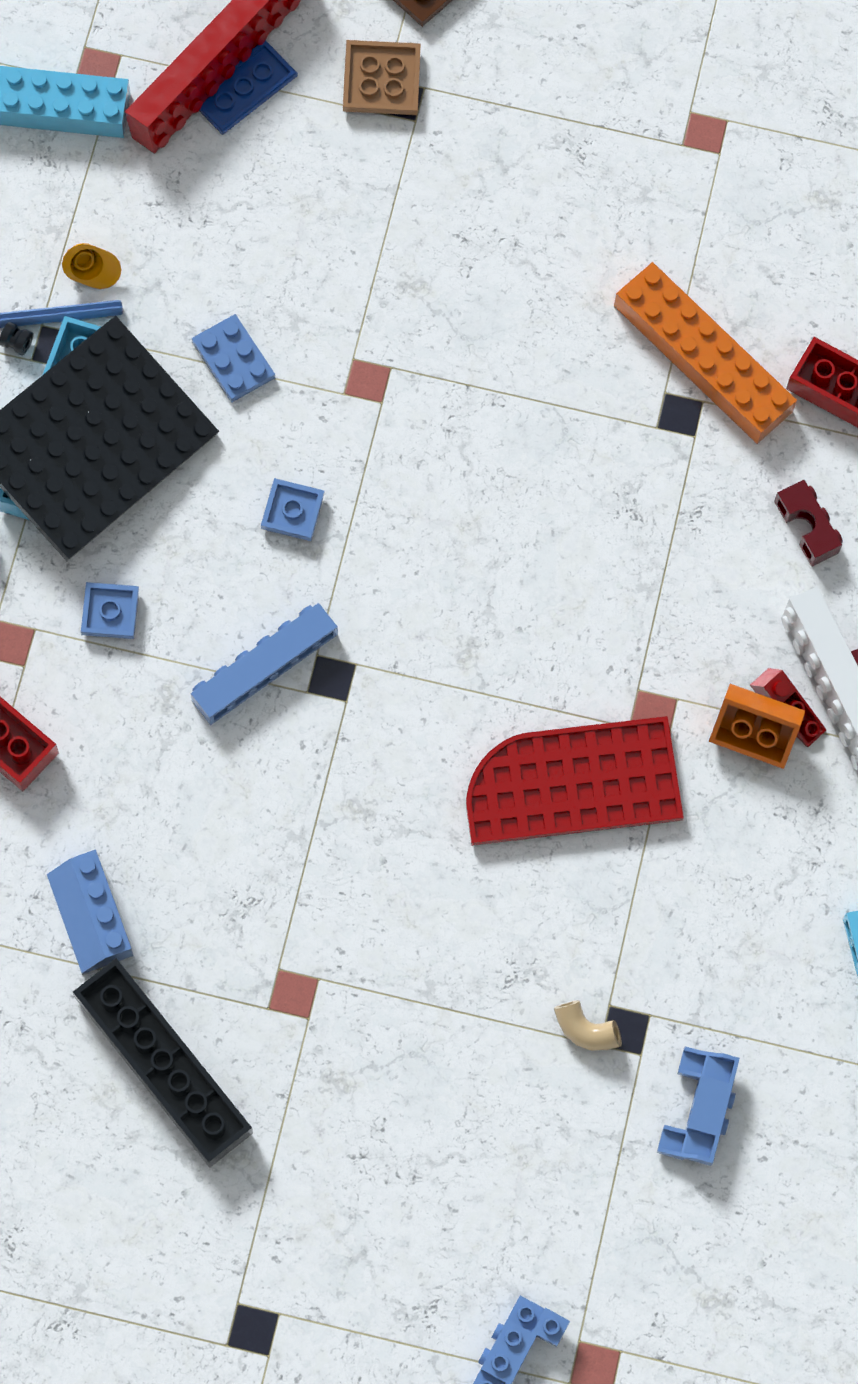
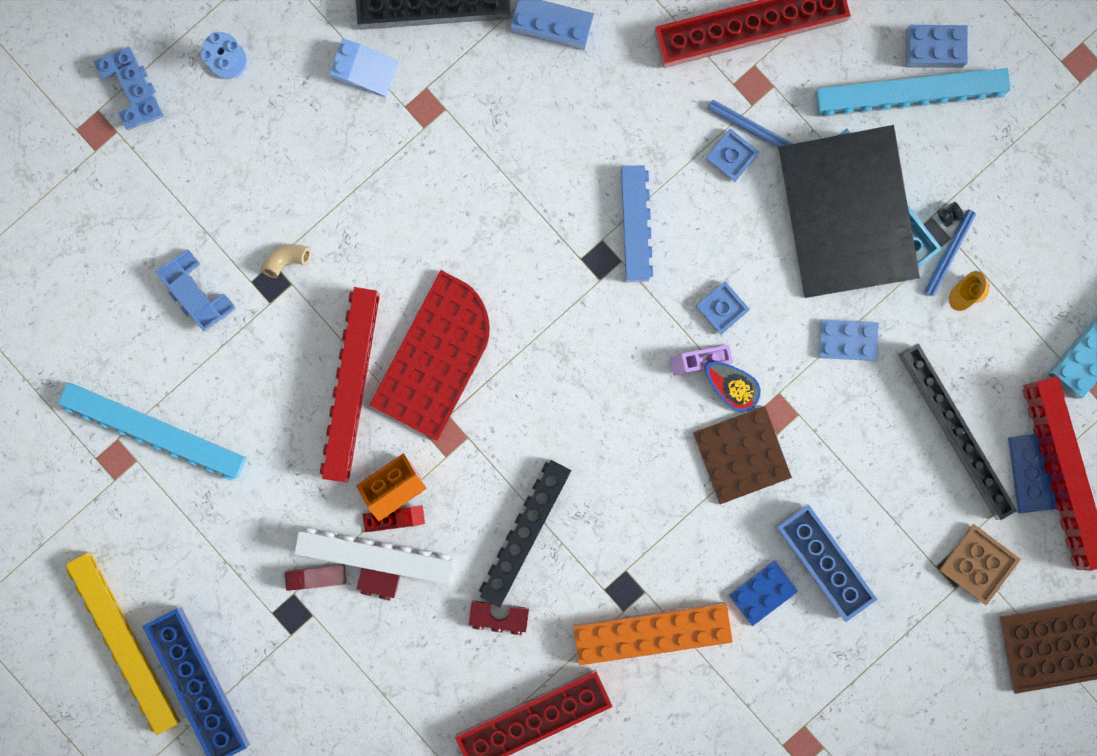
camera: 130 degrees right, 15 degrees up
(61, 613) = (747, 124): none -> medium blue axle
(255, 183) = (957, 432): none -> black brick
(297, 1095) = (363, 67): none -> light blue slope
(369, 494) = (697, 360): none -> lavender slope
(372, 441) = (733, 385): none -> shield
(396, 1277) = (224, 55): none -> light blue piece
(441, 387) = (742, 455): none -> reddish brown plate
(495, 226) = (826, 562): none -> medium blue brick
(574, 271) = (763, 593): none -> blue plate
(676, 849) = (351, 384): none -> red brick
(785, 536) = (497, 596): none -> black brick

